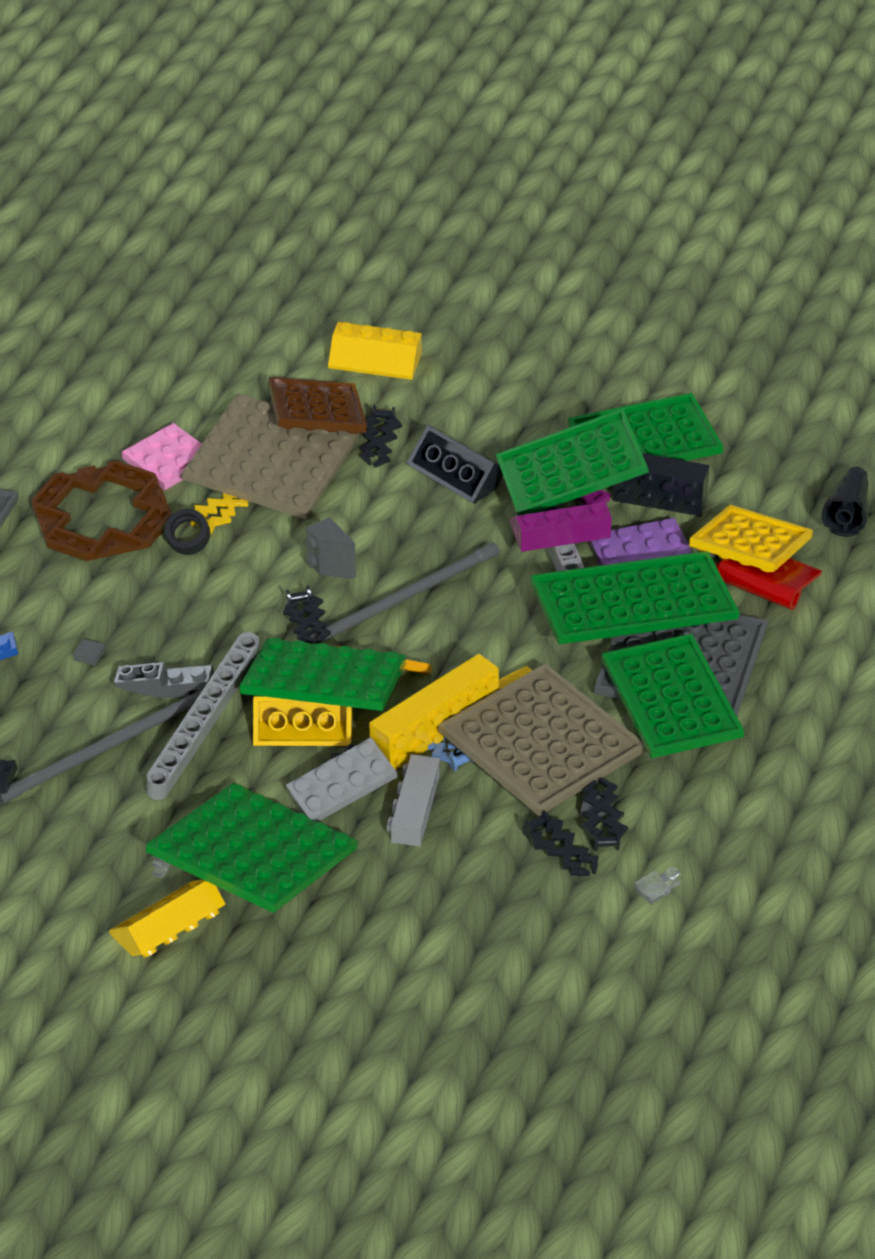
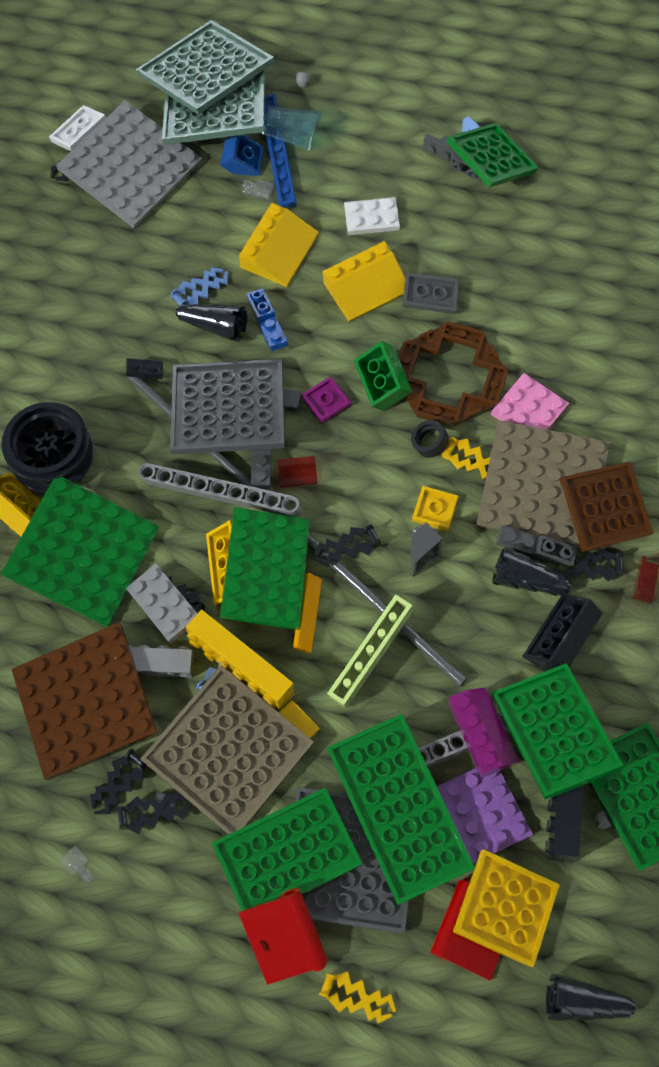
camera: 85 degrees right, 25 degrees up
(78, 854) = (33, 425): none -> black wheel
(87, 696) = (227, 406): none -> dark grey plate
(93, 554) = (382, 376): none -> green brick
(100, 621) = (326, 400): none -> magenta tile
(193, 651) = (297, 471): none -> clear red panel
(275, 546) = (435, 508): none -> yellow tile
(350, 468) = (537, 548): none -> dark grey slope
(378, 481) = (521, 572): none -> black cone
(406, 399) = (645, 580): none -> clear red panel
(448, 602) = (370, 651): none -> yellowish green brick
(454, 862) = (83, 701): none -> reddish brown plate
(764, 704) = (287, 935): none -> red door
(813, 676) = (365, 999): none -> yellow piece

